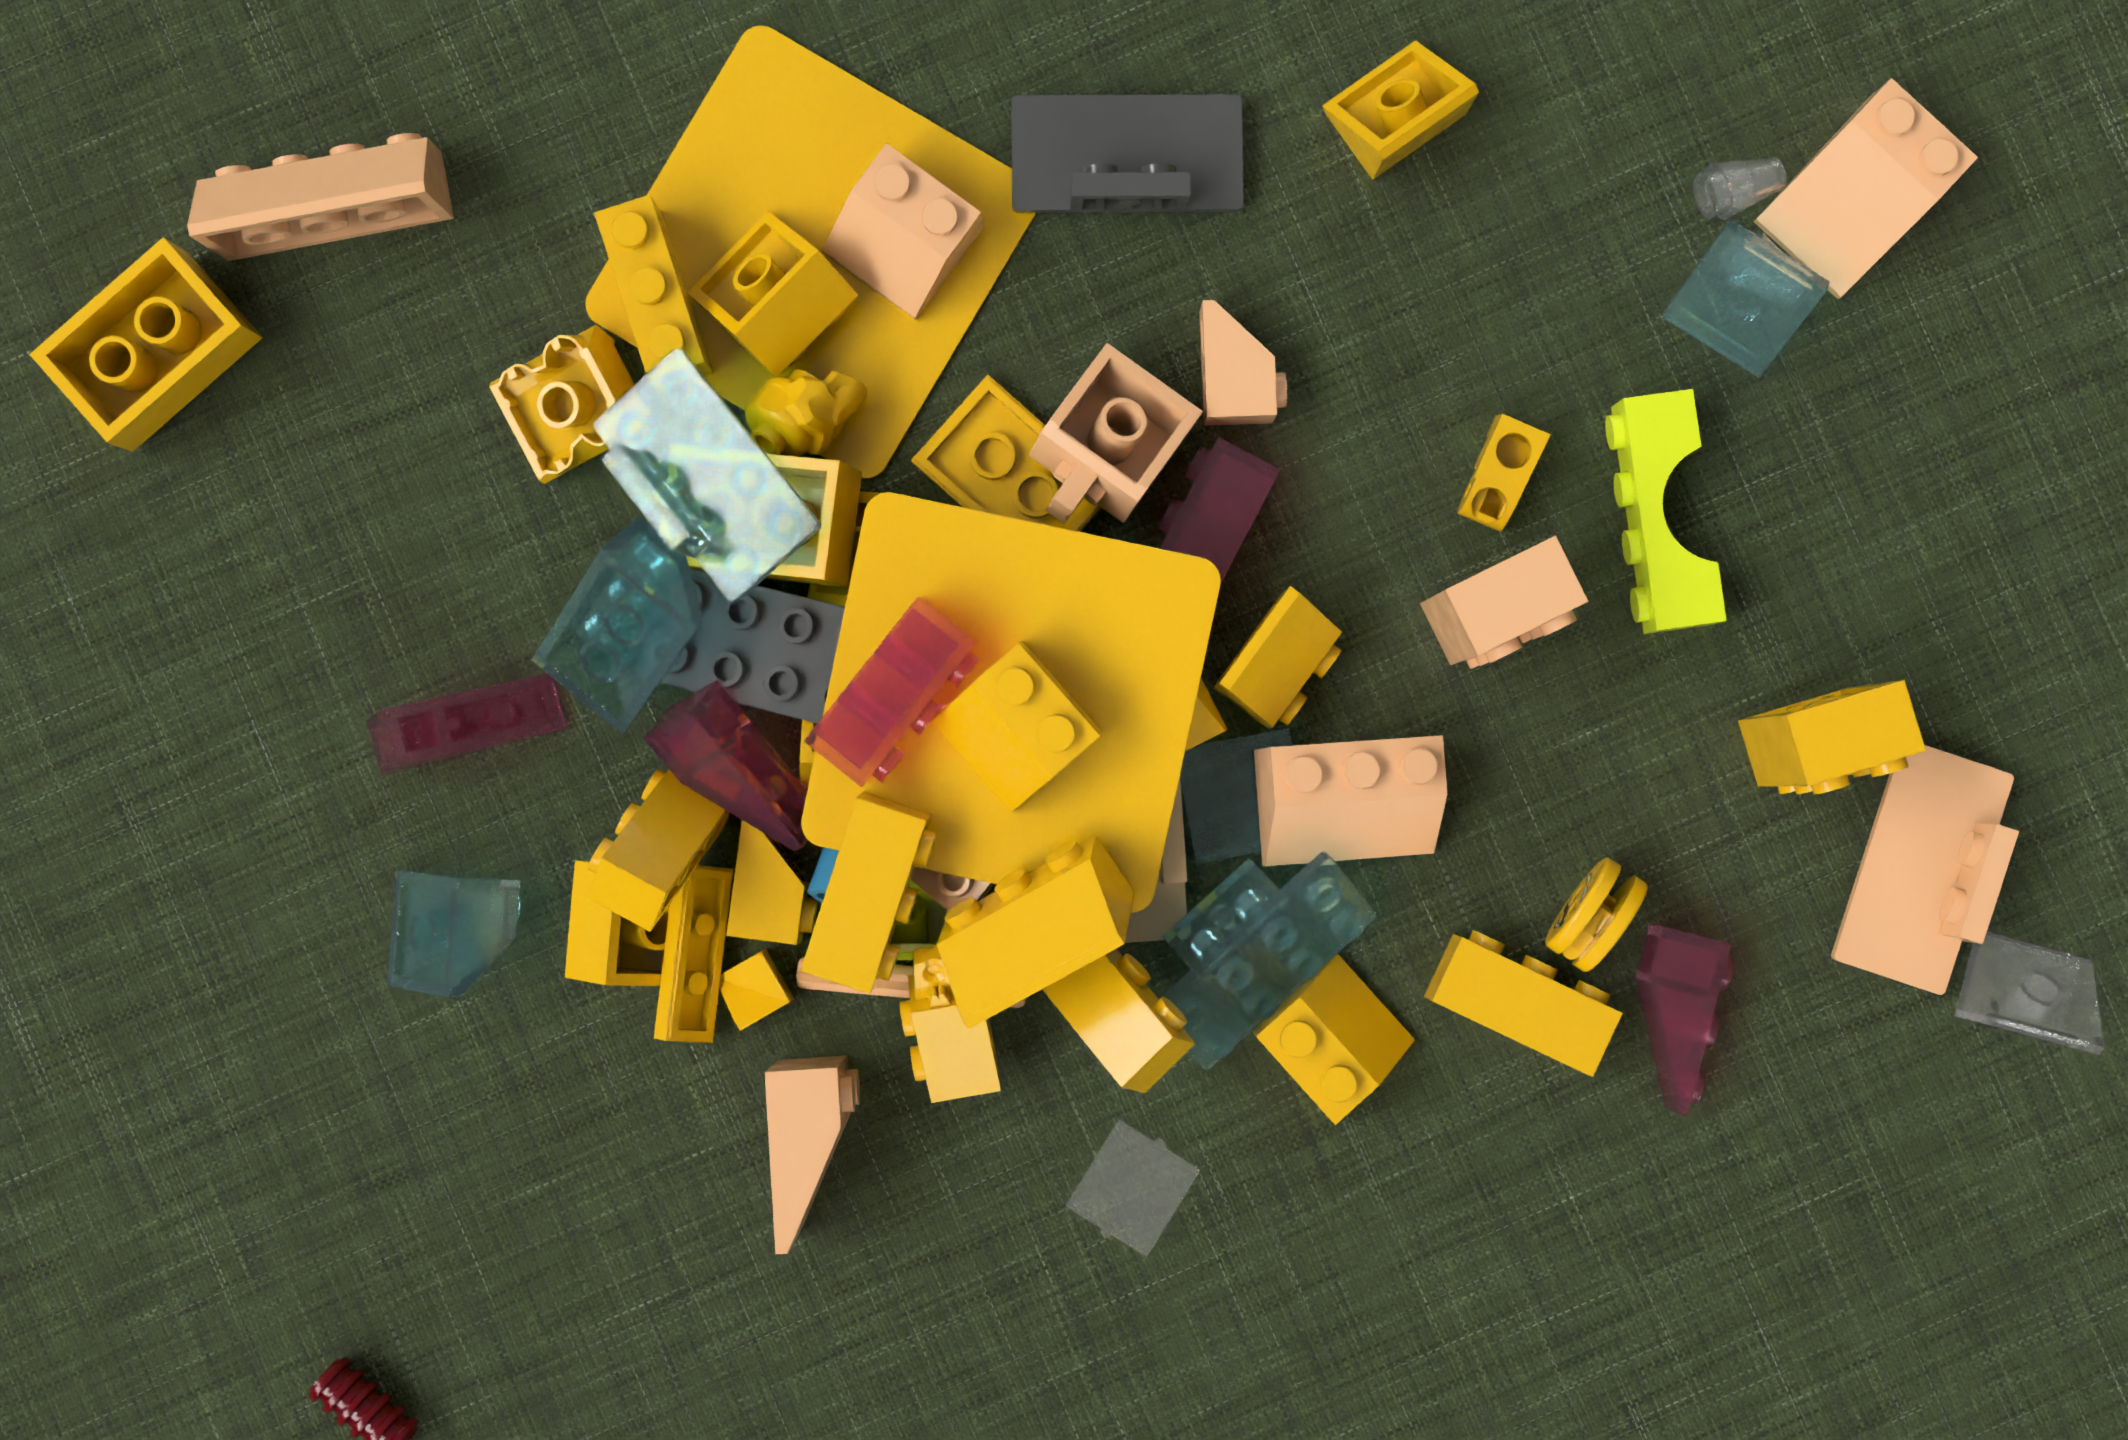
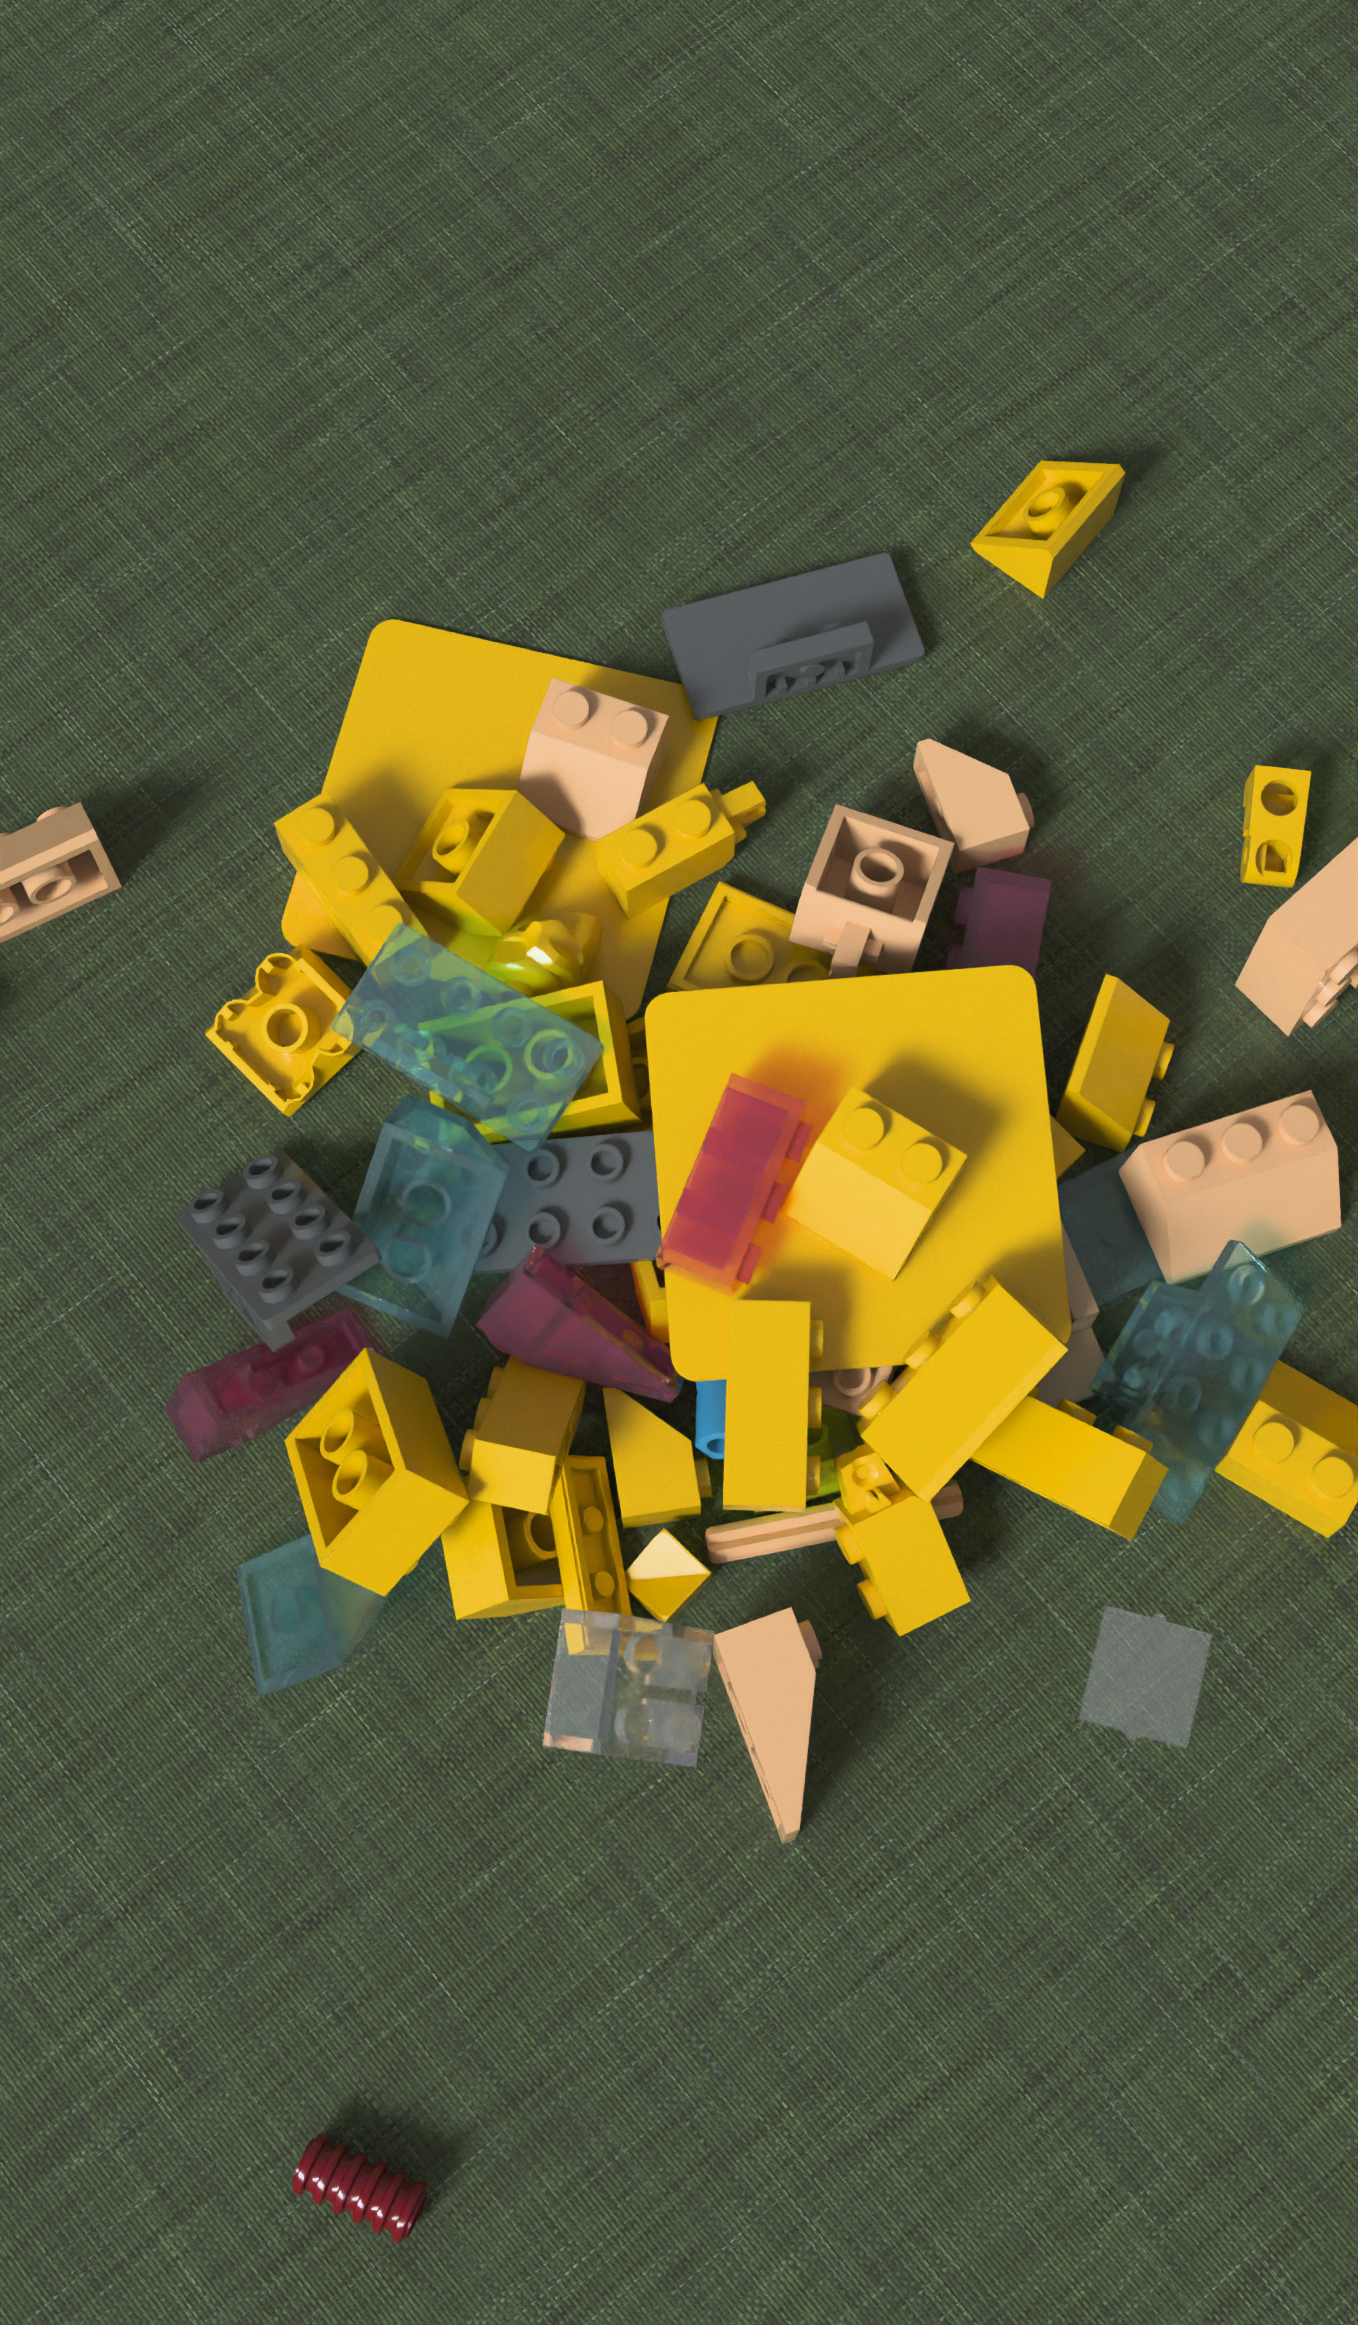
camera: 15 degrees left, 15 degrees down
(493, 609) = (275, 1243): none -> dark grey bracket
(520, 844) = (375, 1473): none -> yellow brick
(686, 1085) = (628, 1687): none -> clear piece
(957, 332) = (675, 844): none -> yellow hinge

